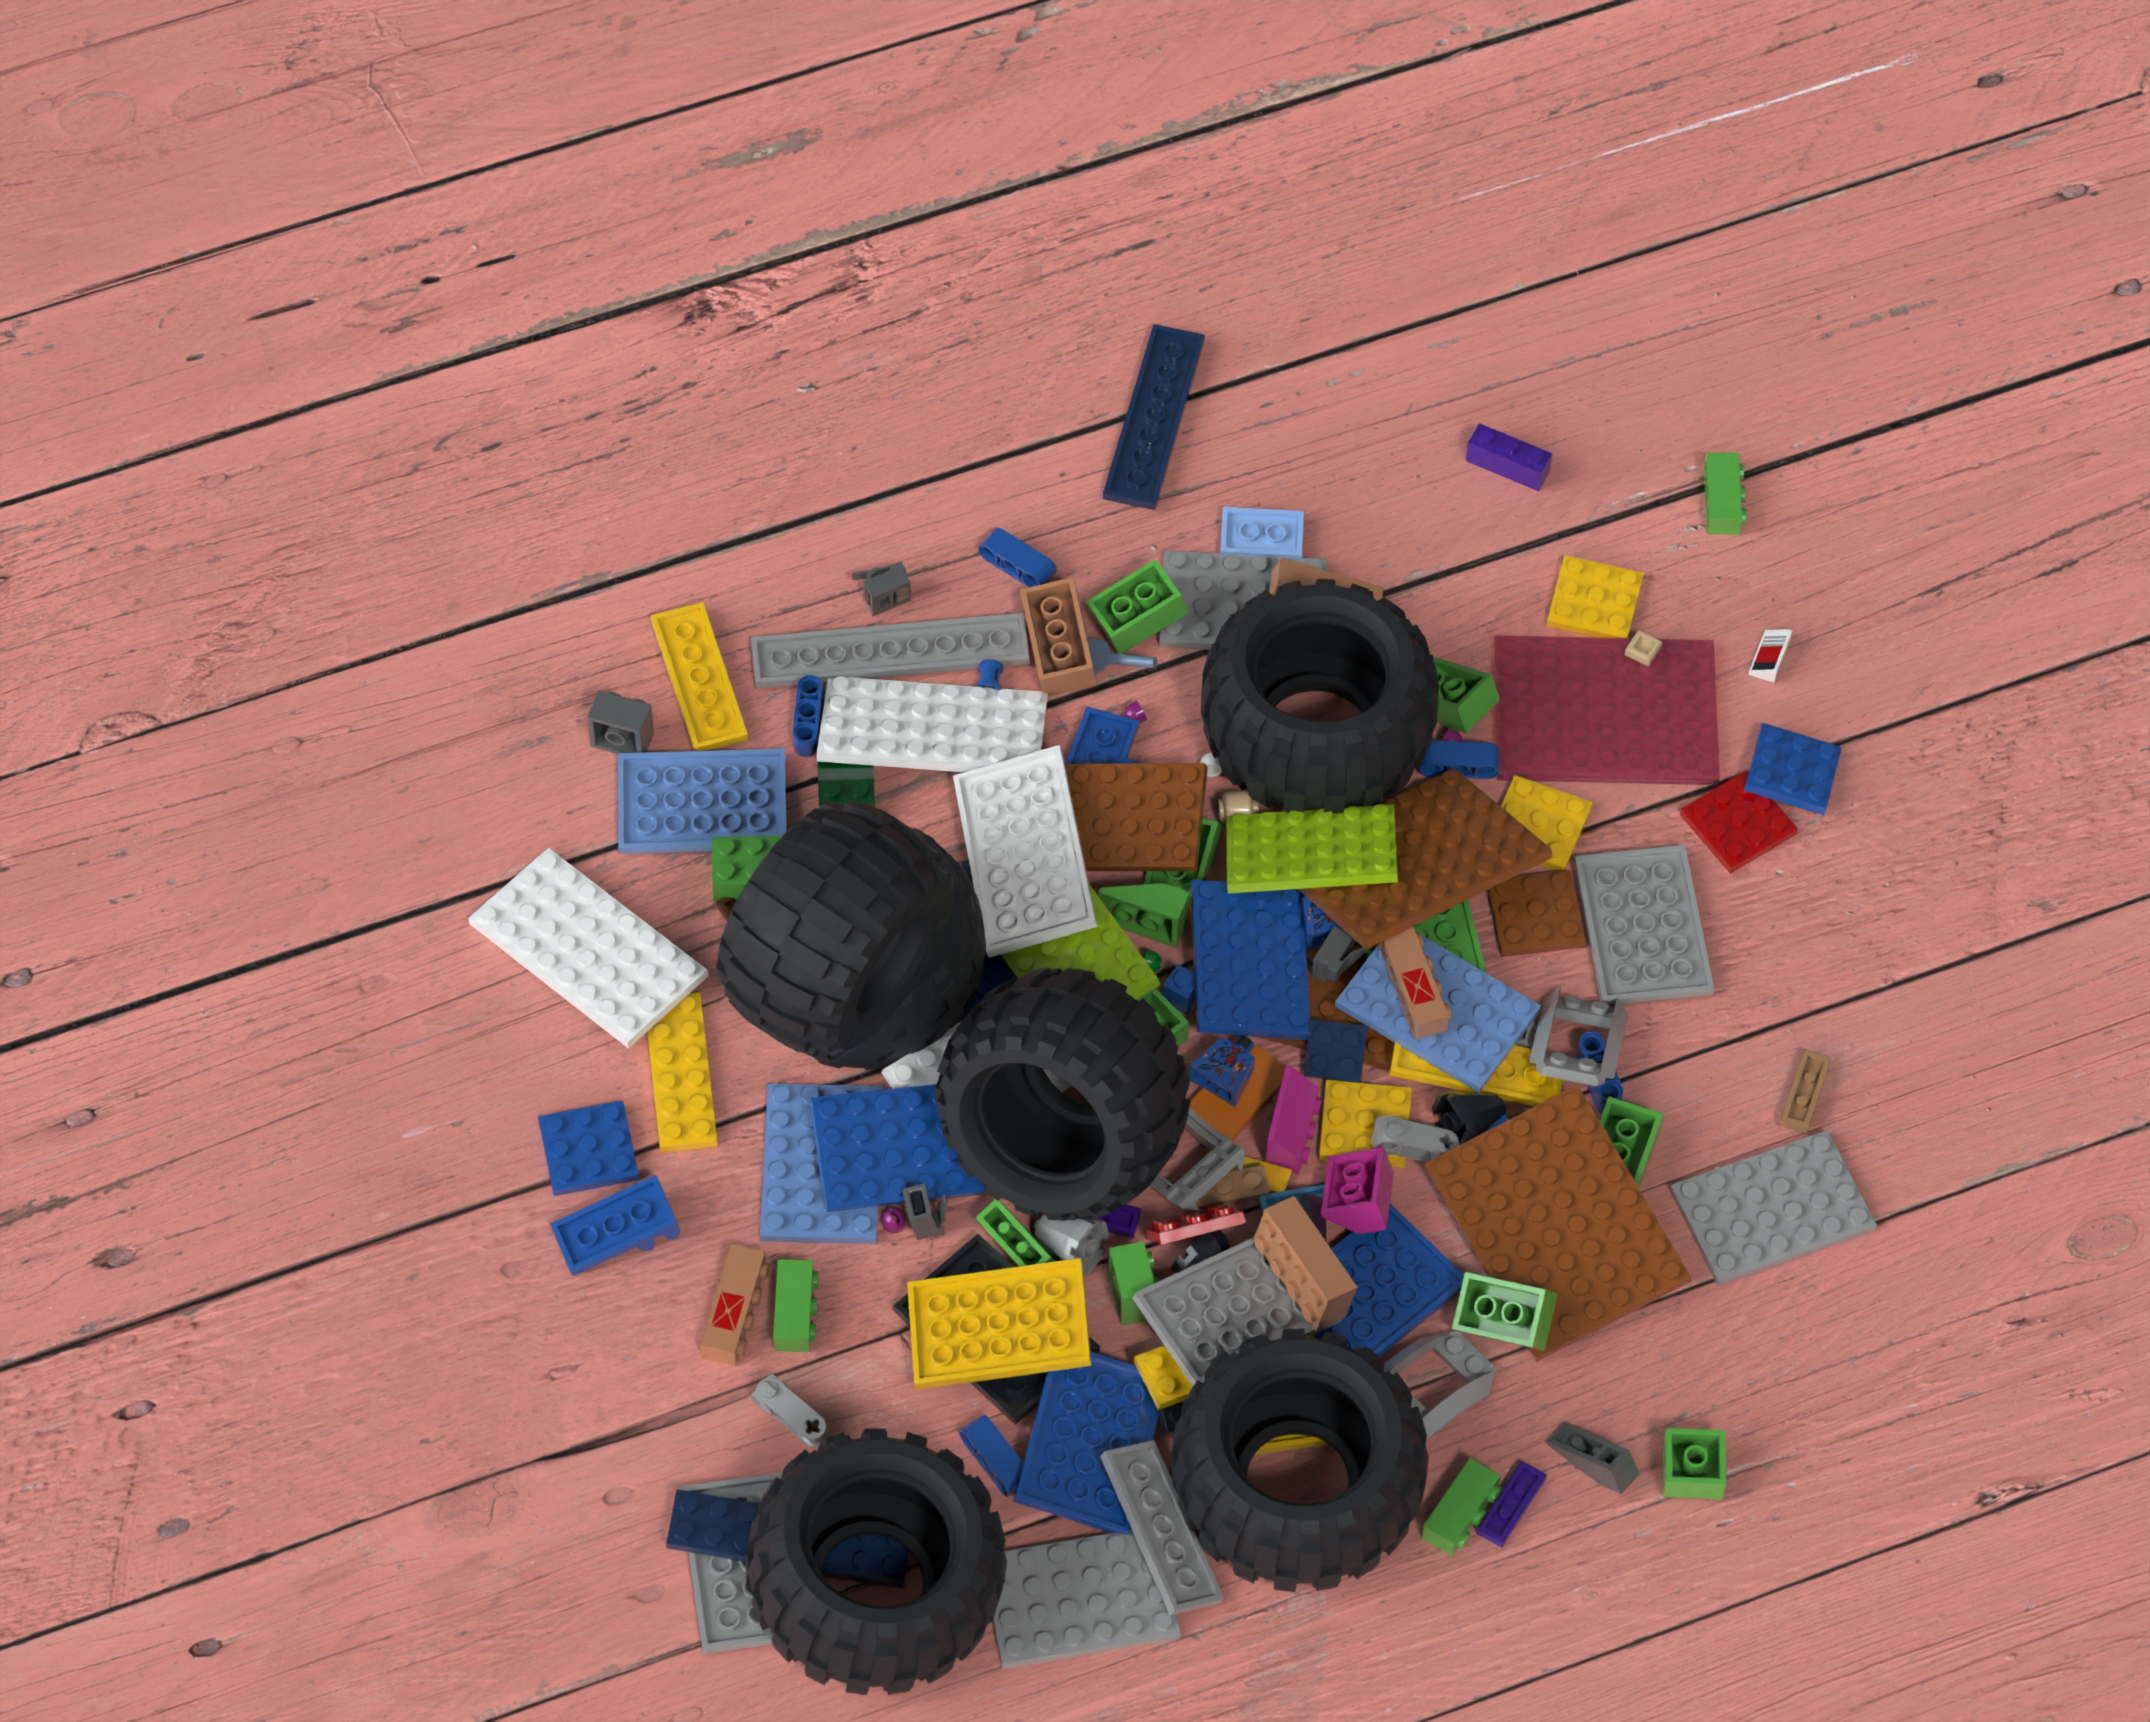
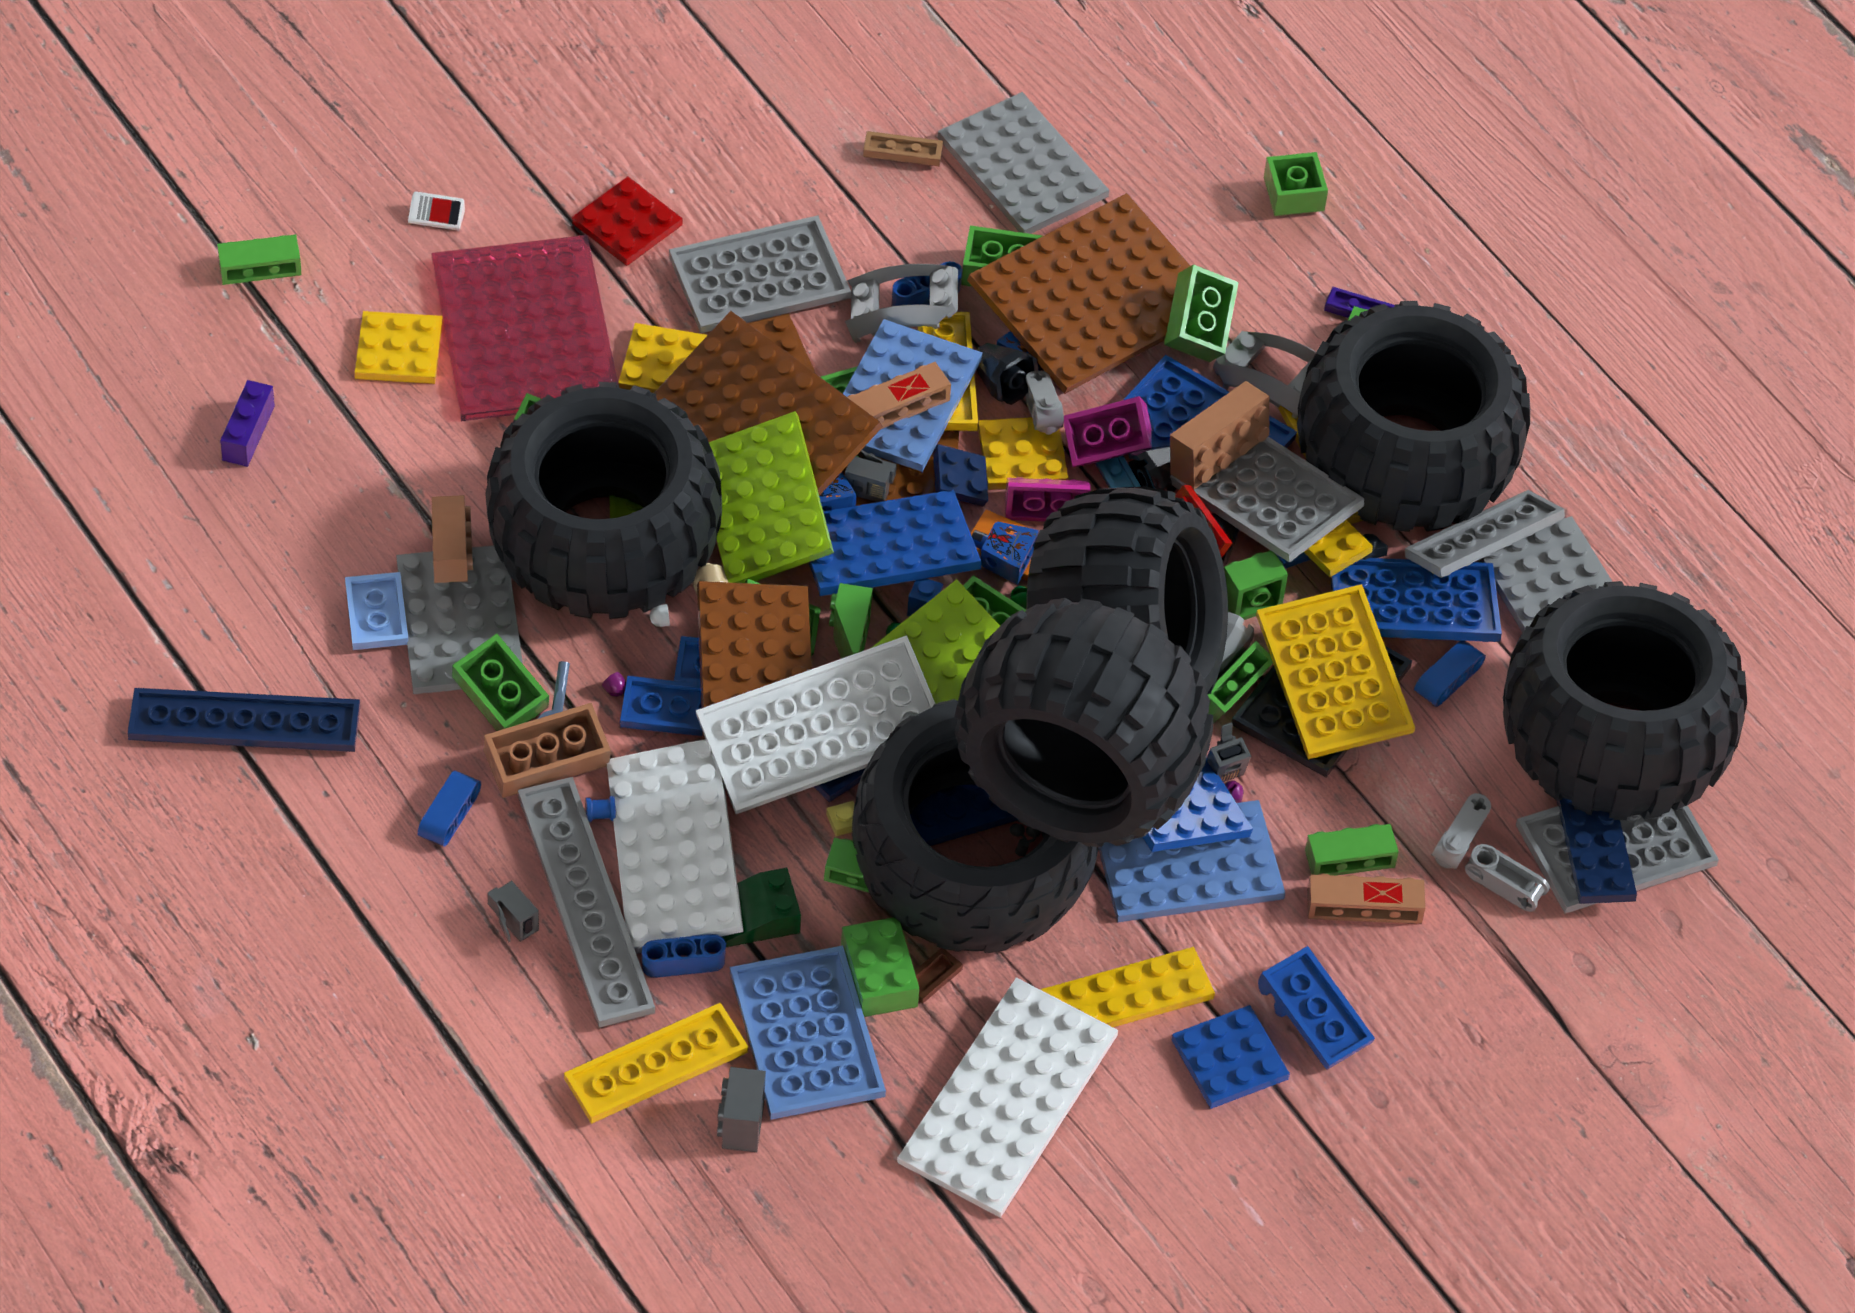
camera: 105 degrees left, 5 degrees down
(729, 1441) = (1506, 877): none -> light grey piece
(1596, 1457) = (1307, 253): dark grey slope -> none
(1643, 648) = (458, 296): tan tile -> none
(1792, 768) = (565, 182): blue plate -> none

